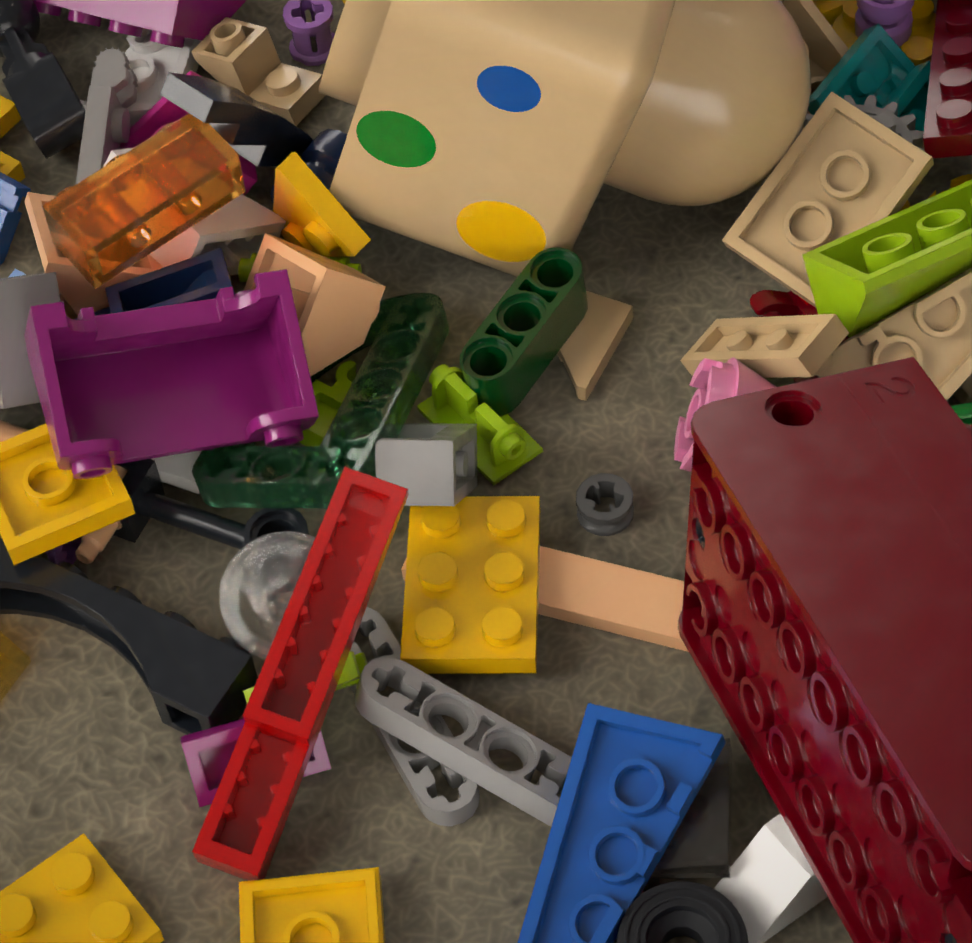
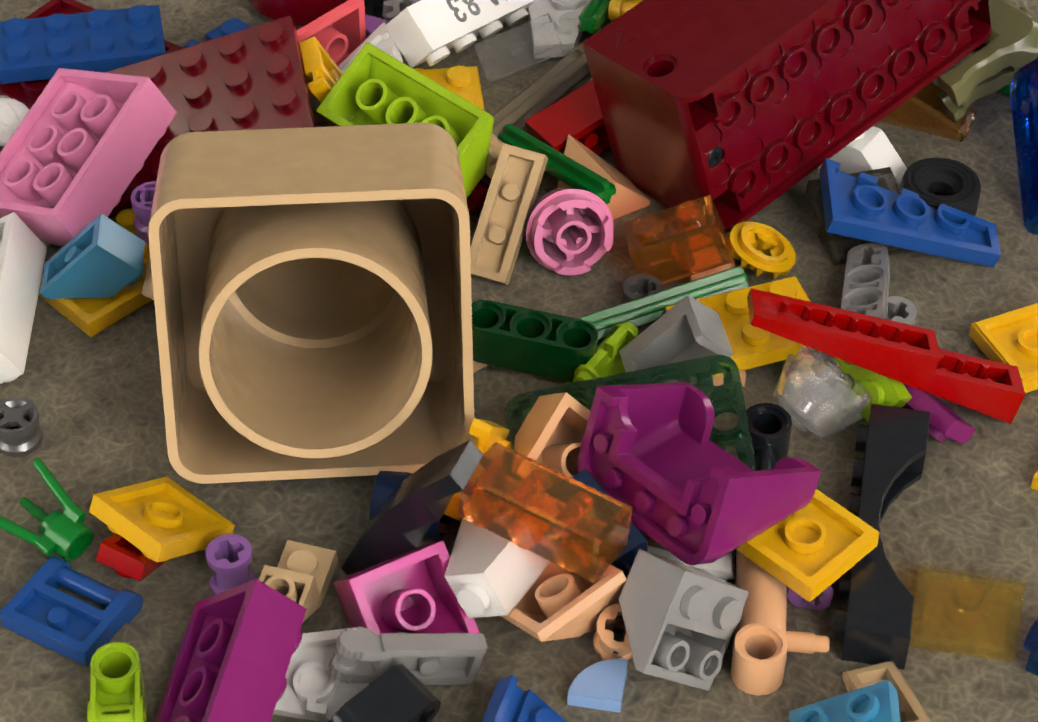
camera: 115 degrees left, 10 degrees down
(558, 507) = (652, 307): none -> green axle
(607, 643) = (761, 249): none -> yellow gear
(648, 539) = (678, 241): none -> clear orange brick

